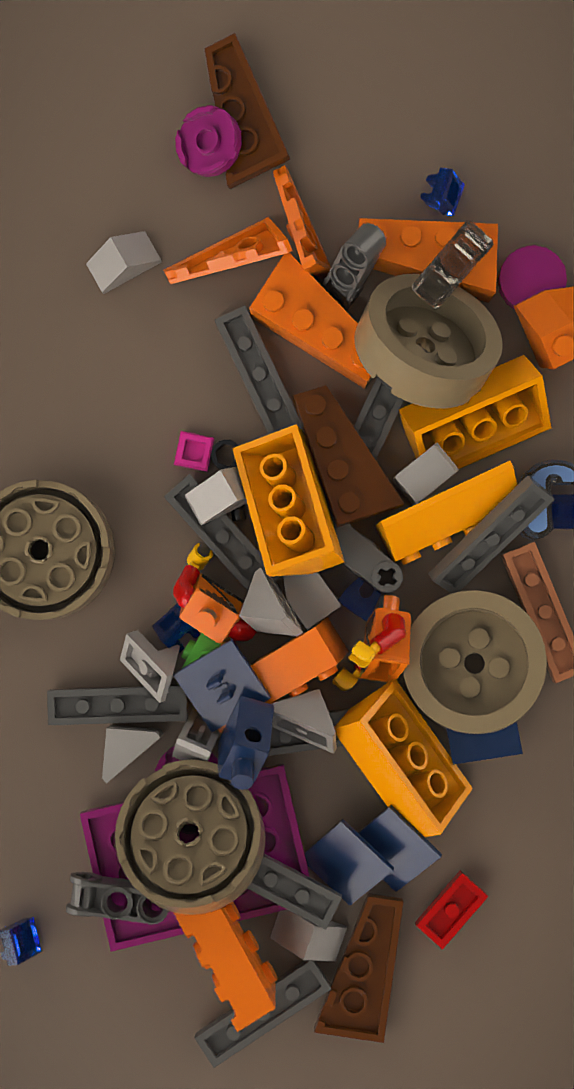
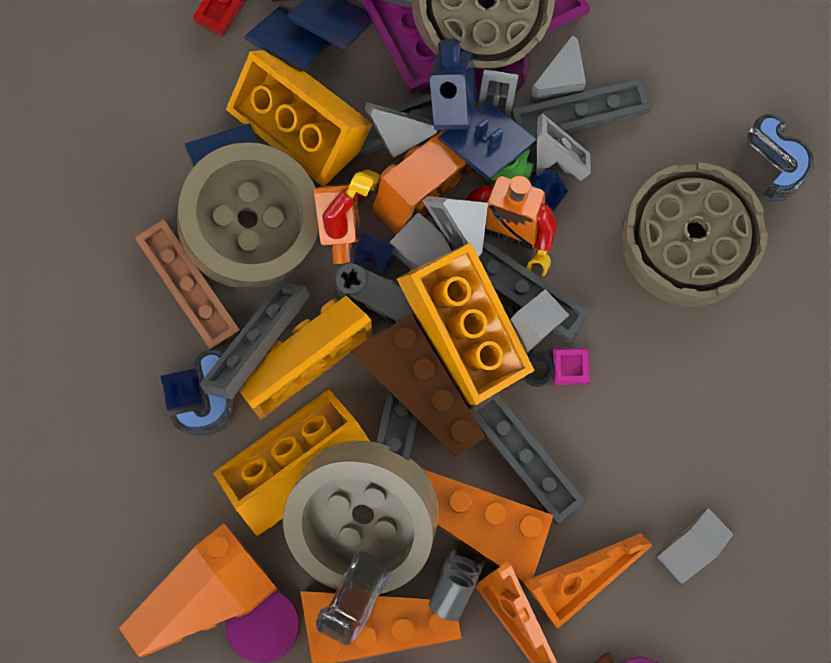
camera: 165 degrees right, 10 degrees down
(425, 474) = (335, 384): light grey slope -> none

